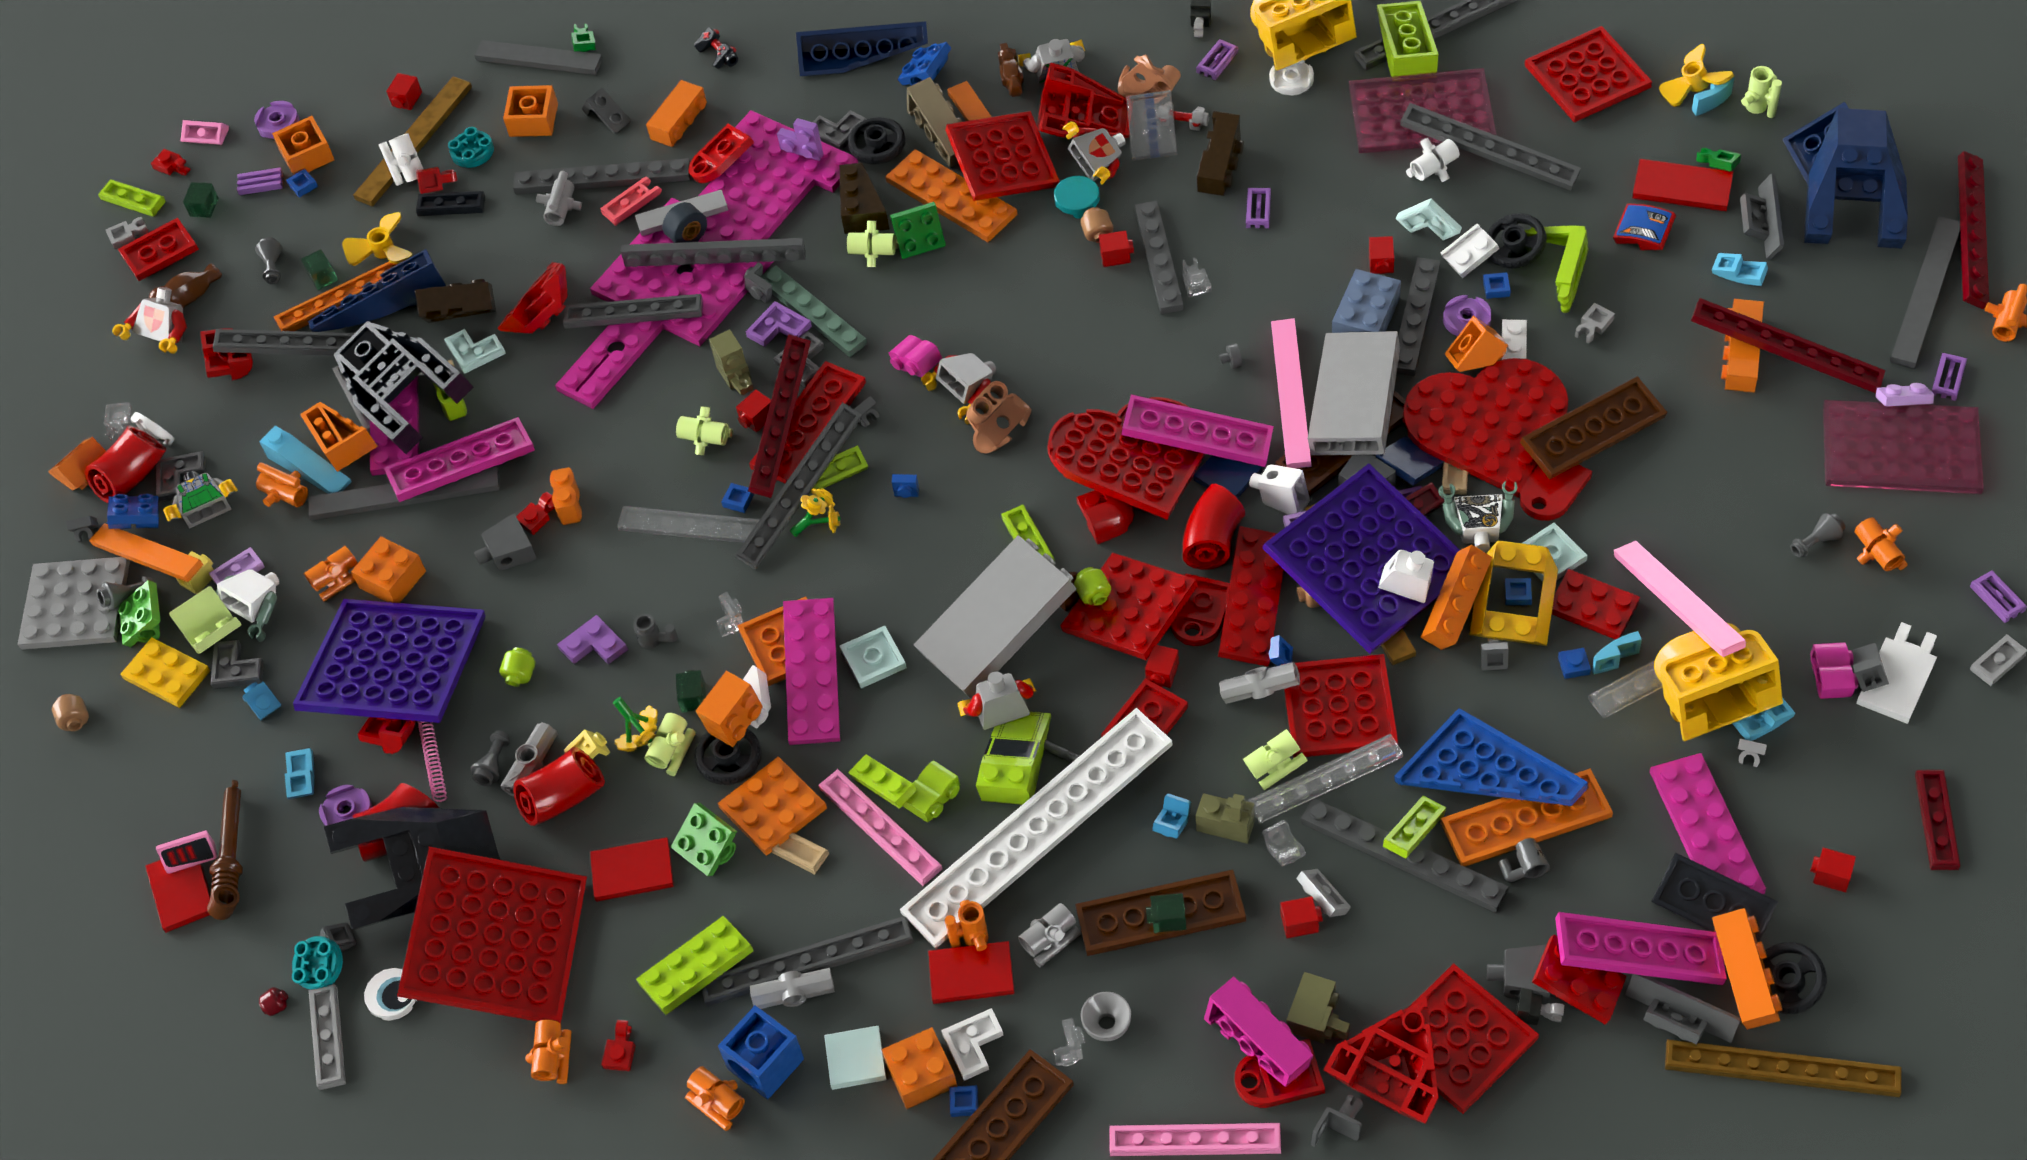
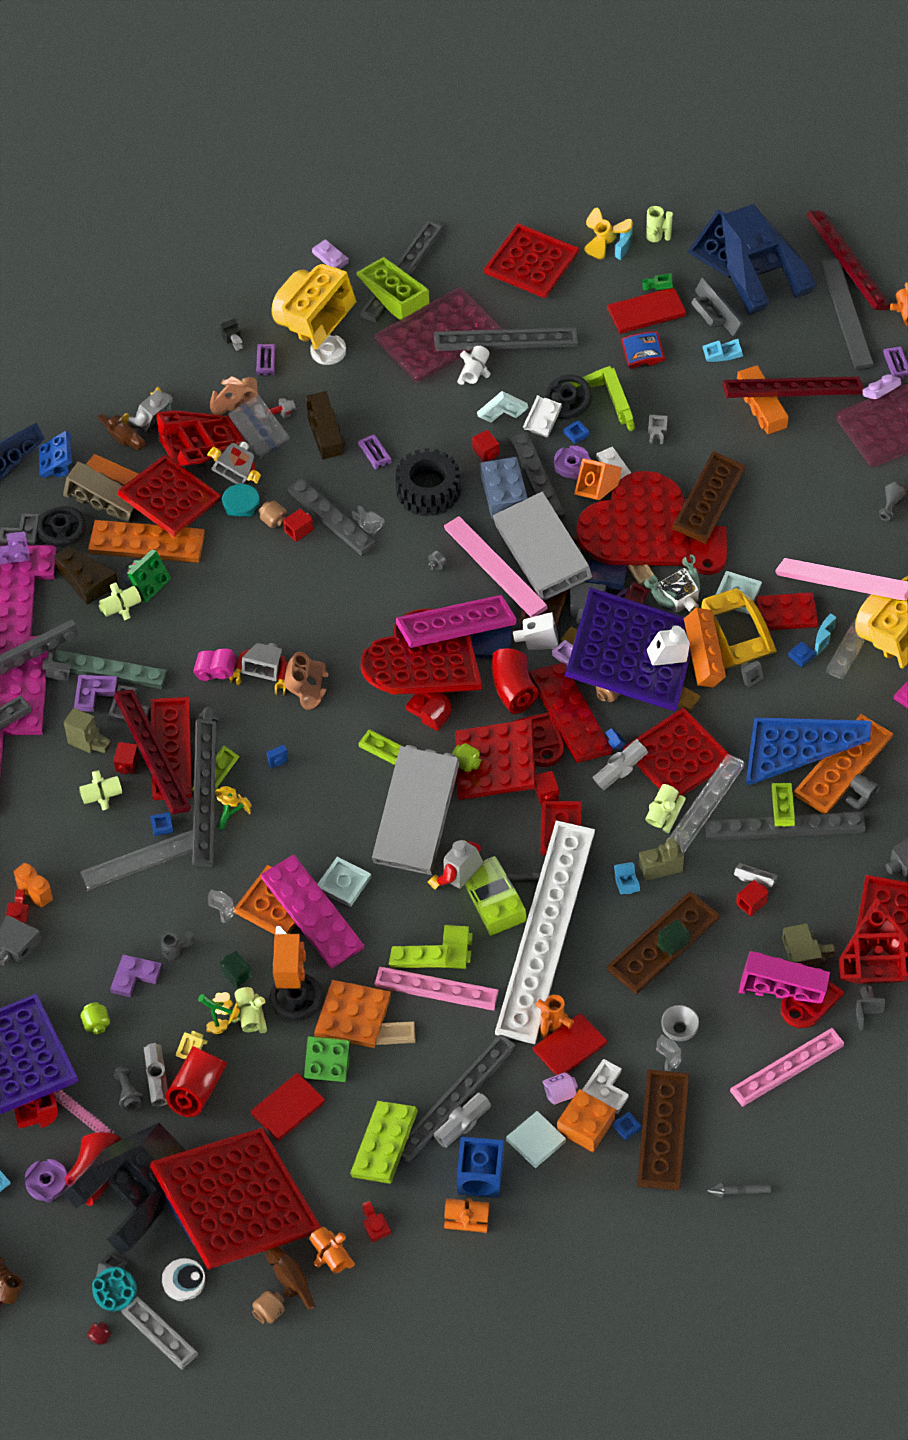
camera: 40 degrees left, 0 degrees up
(445, 1075) = (268, 1307): none -> medium nougat head
(488, 1055) = (290, 1276): none -> reddish brown animal
(918, 1013) = (560, 1088): none -> lavender brick
(1049, 934) = (604, 993): light grey pin -> none
(1283, 844) = (709, 860): clear bracket -> none
(1285, 286) = (427, 499): none -> black tyre
(1518, 591) = (736, 626): blue plate -> none

